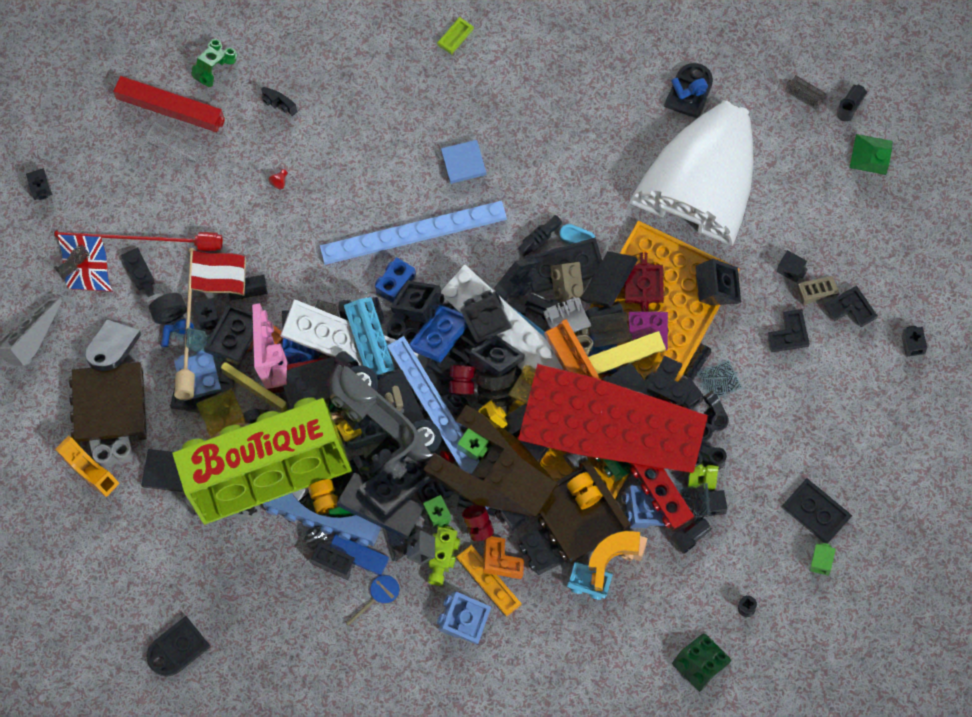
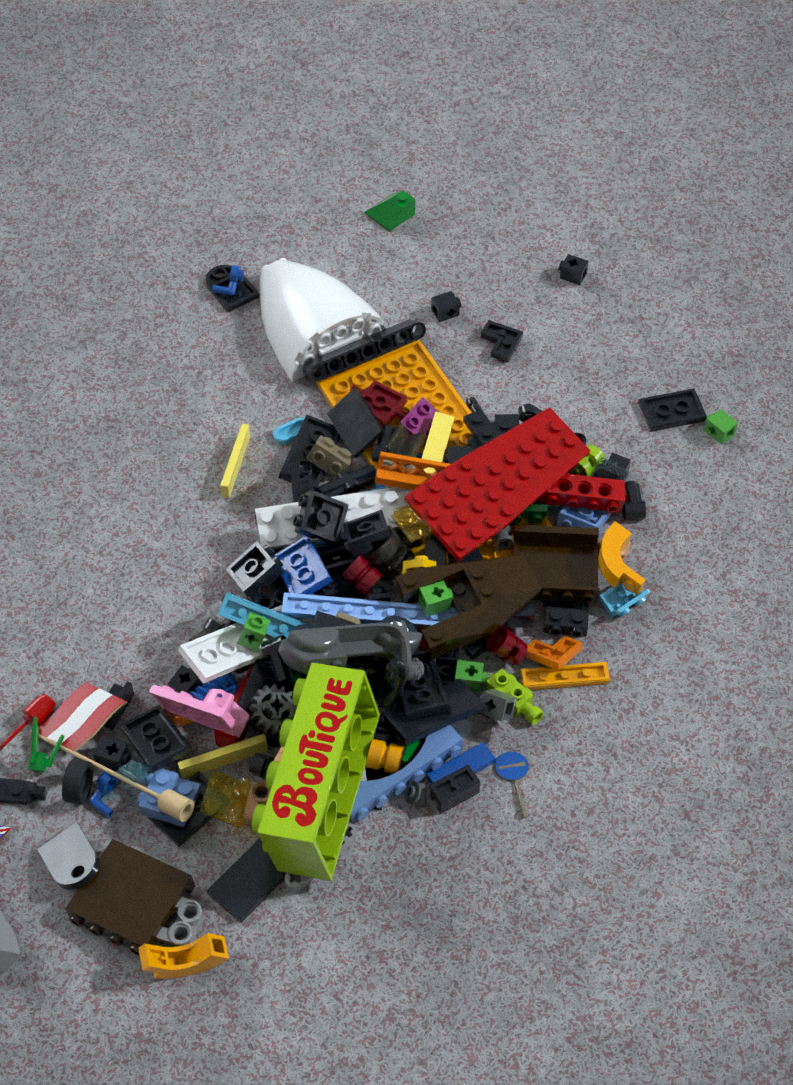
camera: 60 degrees left, 15 degrees down
(169, 270) = (38, 760): none -> green plant
(177, 647) = (440, 987): black tile -> none
(278, 180) = (30, 619): red rock -> none
(295, 388) = (268, 715): none -> dark grey gear
(346, 339) = (256, 627): none -> bright green brick
(396, 281) = (217, 581): blue brick -> none
(413, 232) = (177, 549): light blue plate -> none
(455, 35) = (24, 411): lime tile -> none
(463, 161) = (148, 469): medium blue tile -> none
(463, 617) = (589, 713): medium blue plate -> none
(515, 217) = (235, 461): none -> light yellow tile
(539, 236) = (267, 454): black hinge -> none
(572, 312) = (364, 468): light grey hinge -> none
(581, 484) = (533, 548): light orange wheel -> none
(701, 239) = (356, 348): none -> black beam
(701, 661) = (757, 560): dark green bracket -> none
(718, 283) = (421, 355): black slope -> none
(720, 379) = (503, 405): clear light blue piece -> none
(743, 610) = (730, 501): black bush -> none
(805, 92) = (302, 220): clear smoke panel -> none
(806, 299) = (477, 309): dark tan slope -> none
(851, 102) = (337, 197): black piece -> none
(851, 302) = (510, 287): black plate -> none

